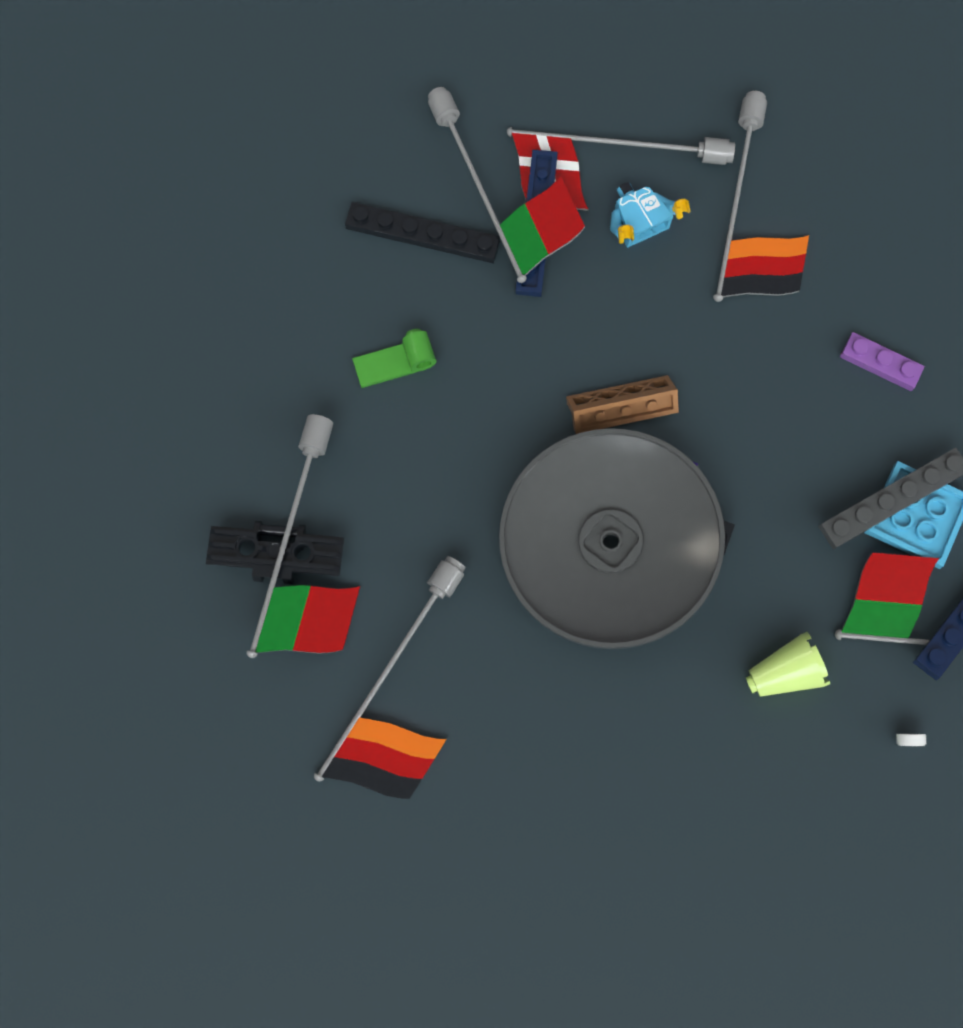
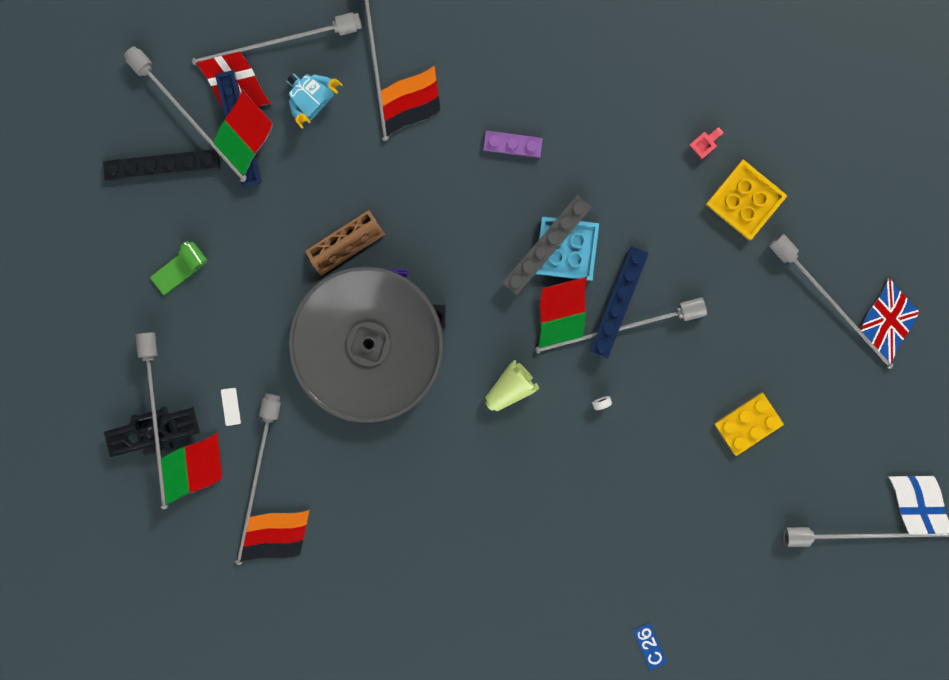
camera: 15 degrees left, 15 degrees up
(391, 559) = (230, 406): none -> white sticker

